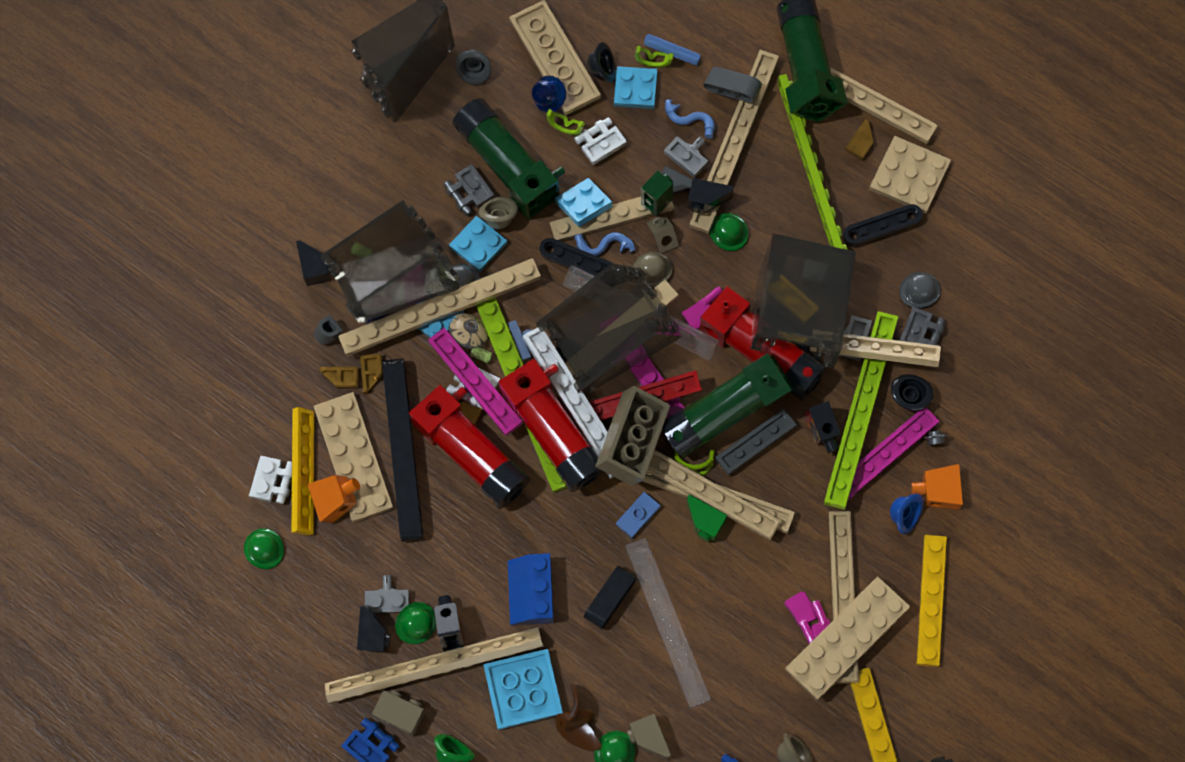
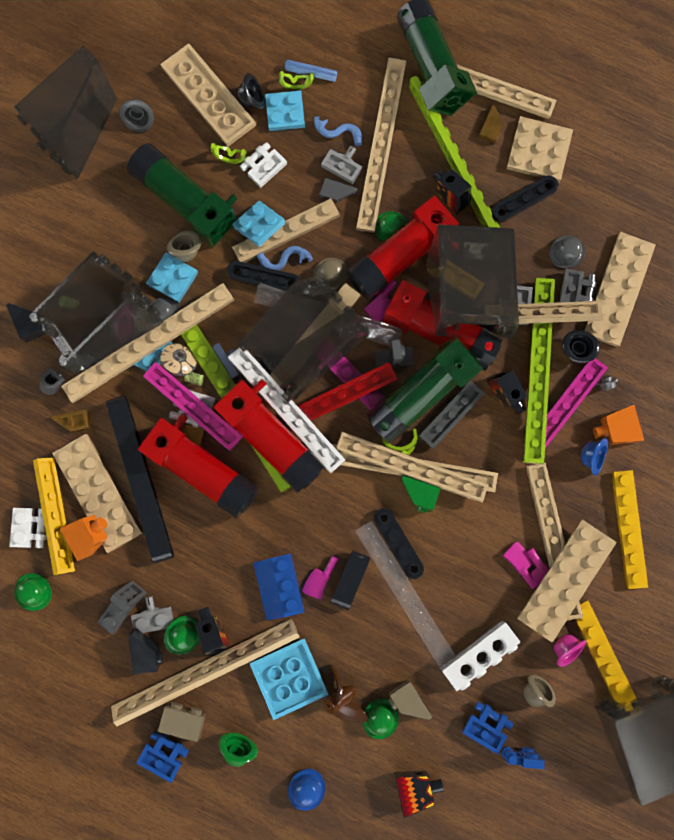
camera: 15 degrees left, 10 degrees up
(355, 579) = (121, 606): none -> dark grey bracket
(371, 371) = (98, 411): pearl gold tile -> none
(474, 186) = (159, 225): flat silver plate -> none
(549, 93) = (209, 128): clear blue hat -> none
(575, 592) = (318, 580): none -> dark pink piece
(632, 436) = (345, 434): dark tan brick -> none
(637, 515) = (360, 499): medium blue plate -> none
(657, 193) = (323, 203): dark green brick -> none
(660, 228) = (332, 235): dark tan bracket -> none
(671, 569) = (398, 543): none -> black plate
(707, 369) = (397, 356): none -> dark grey bracket
(708, 195) = (368, 198): black slope -> none
(730, 257) = (400, 250): none -> red piece
(732, 84) = (371, 93): dark grey beam -> none
(765, 683) = (483, 644): none -> white brick
(803, 202) = (453, 190): none -> black torso
(836, 715) = (568, 649): none -> dark pink hat
(970, 339) = (620, 287): none -> tan plate

